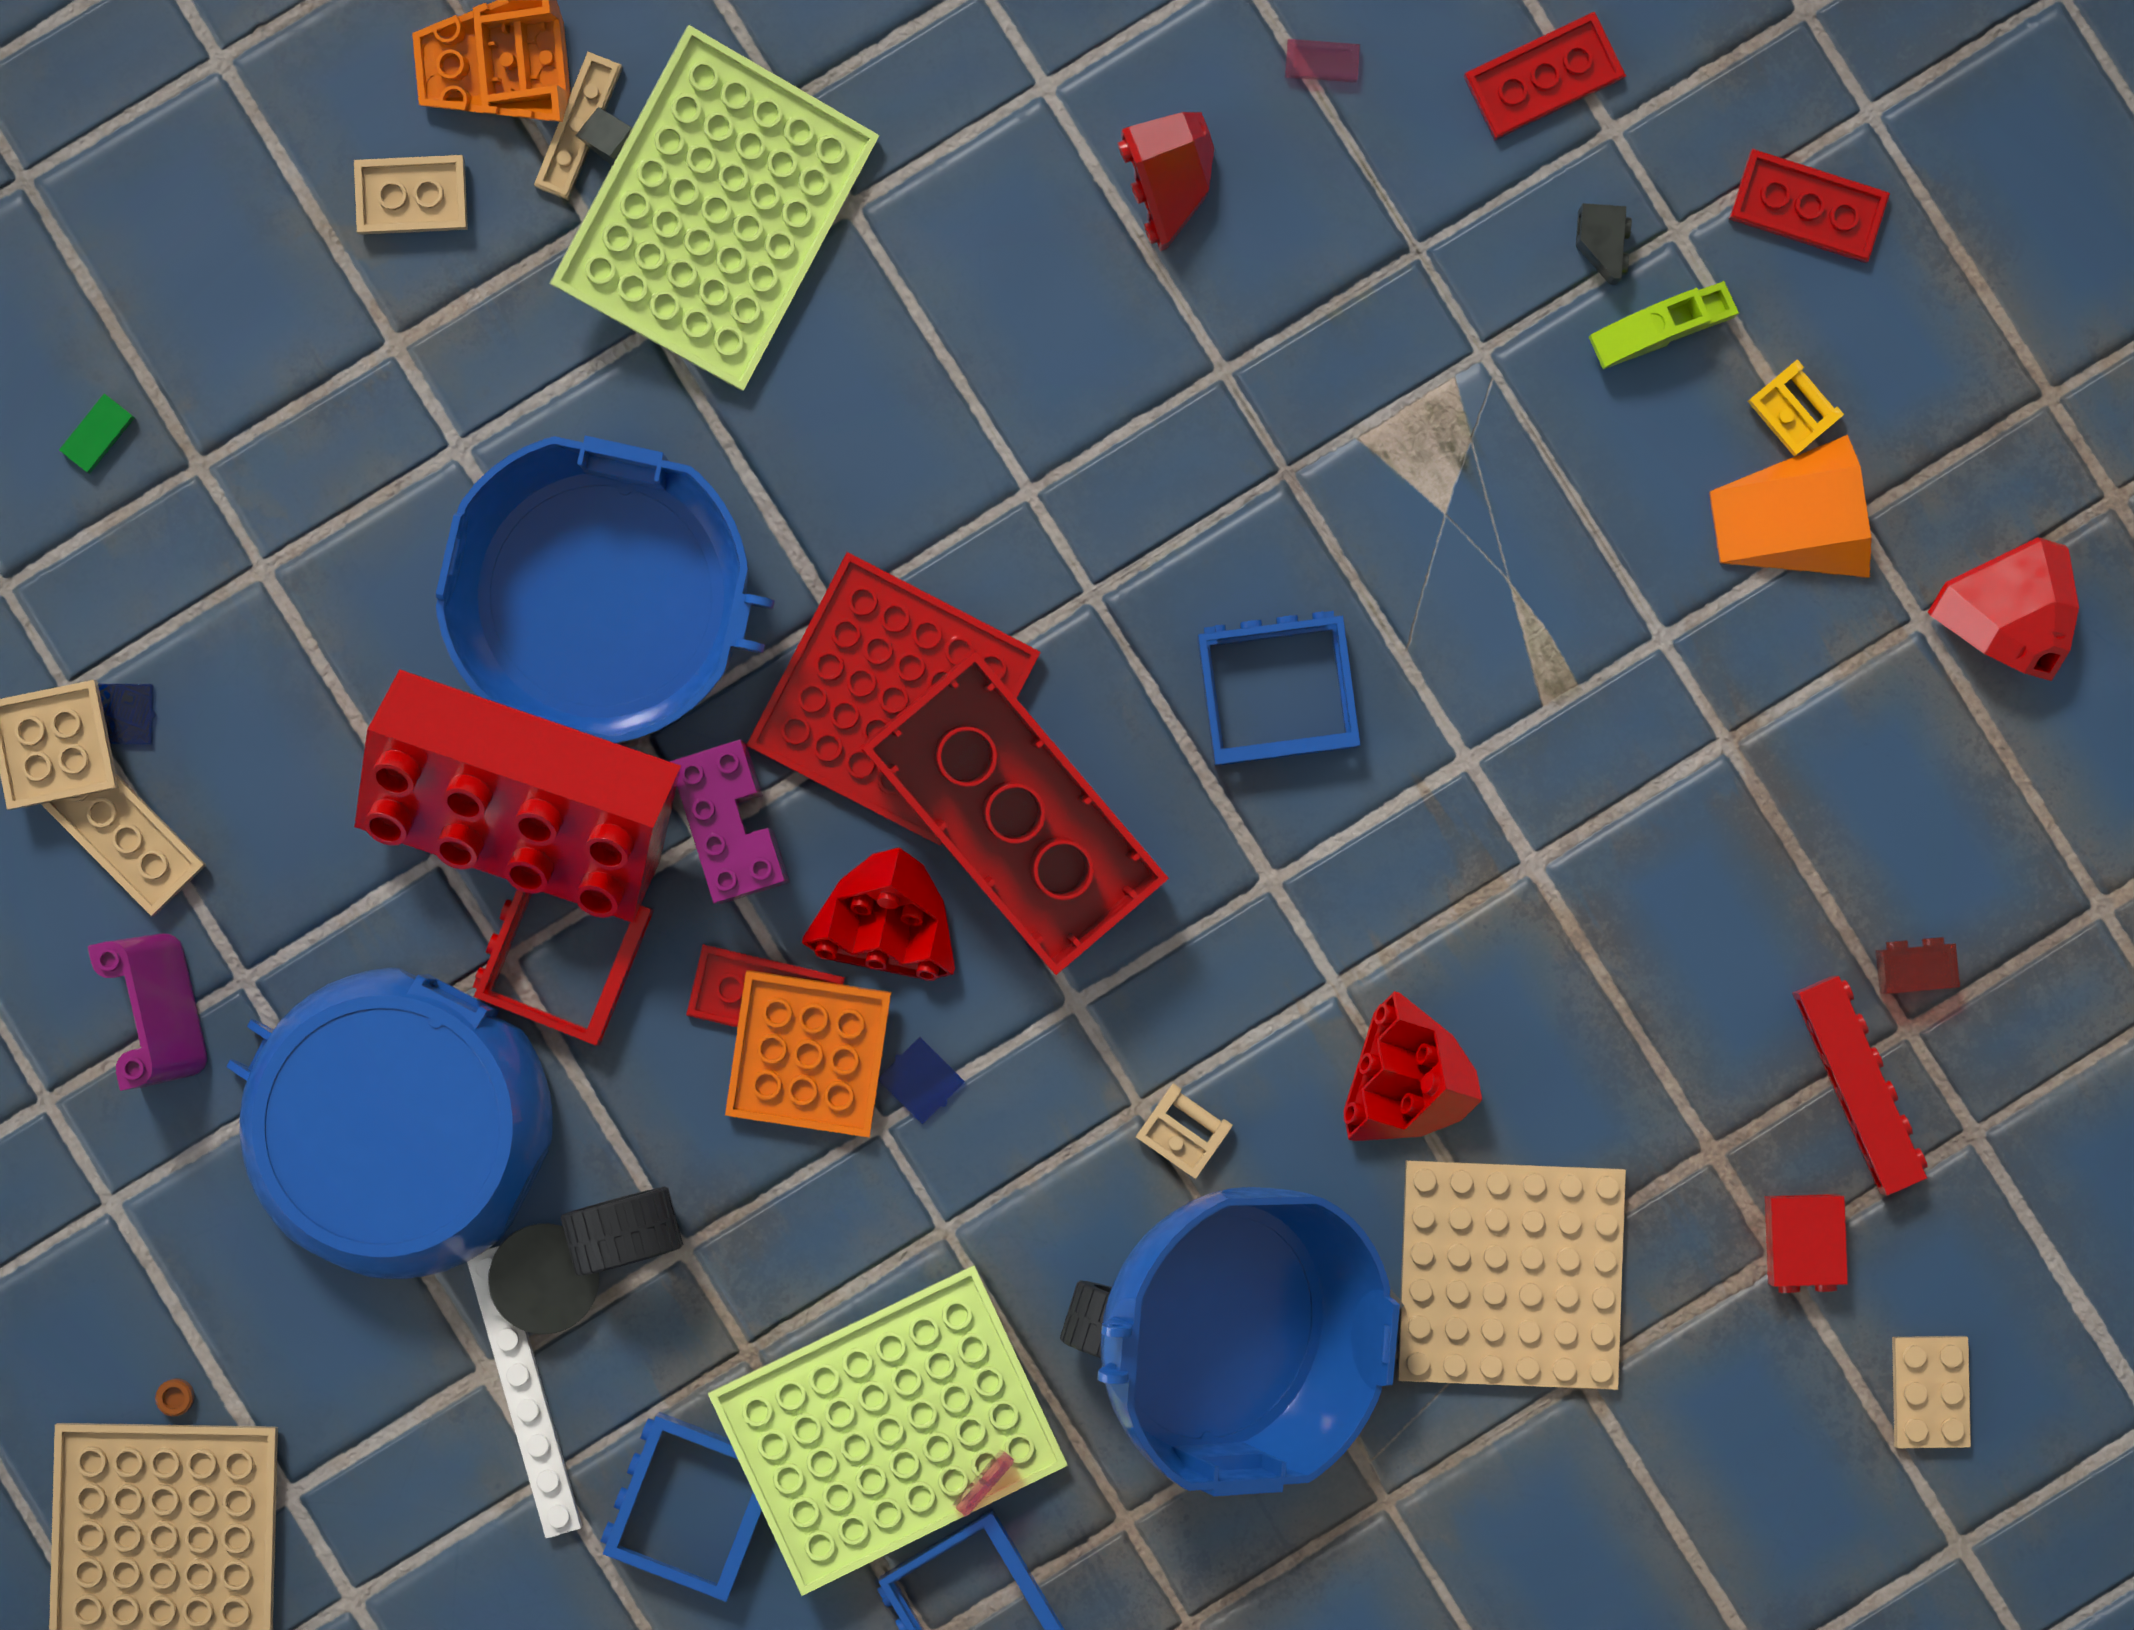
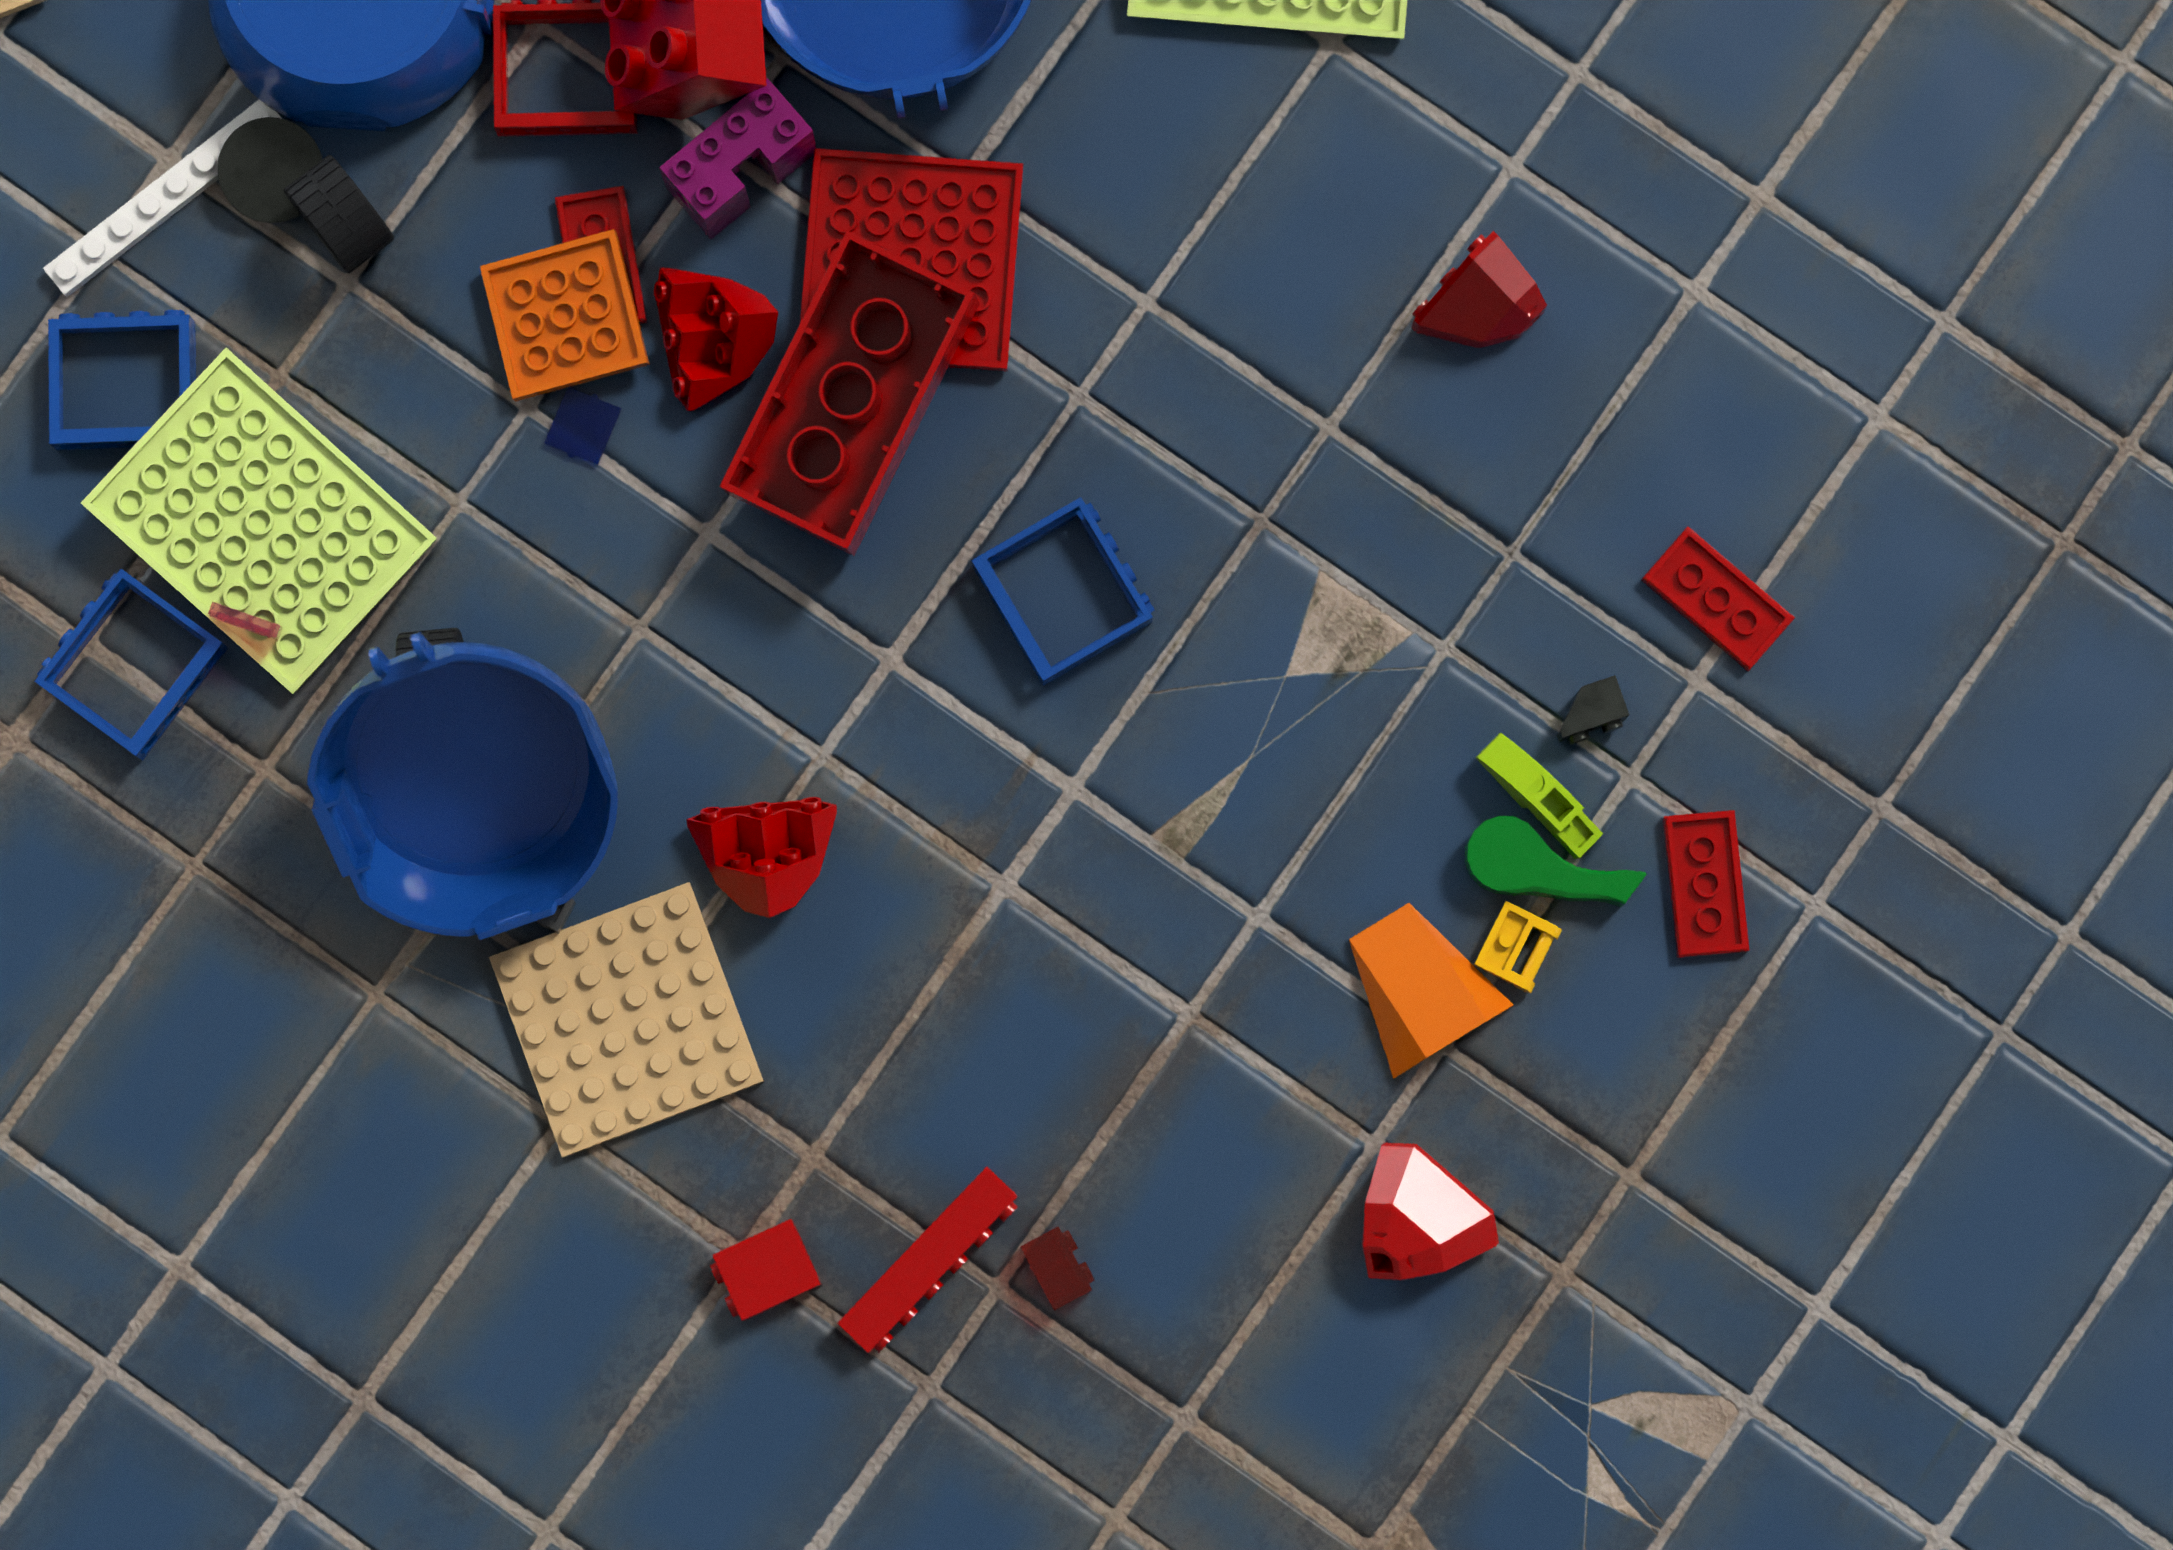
camera: 70 degrees right, 5 degrees down
(1175, 1140) = (622, 668): tan plate -> none
(1322, 60) = (1643, 397): clear pink tile -> none
(1716, 373) = (1514, 860): none -> green animal
(1931, 1392) = (677, 1444): tan plate -> none

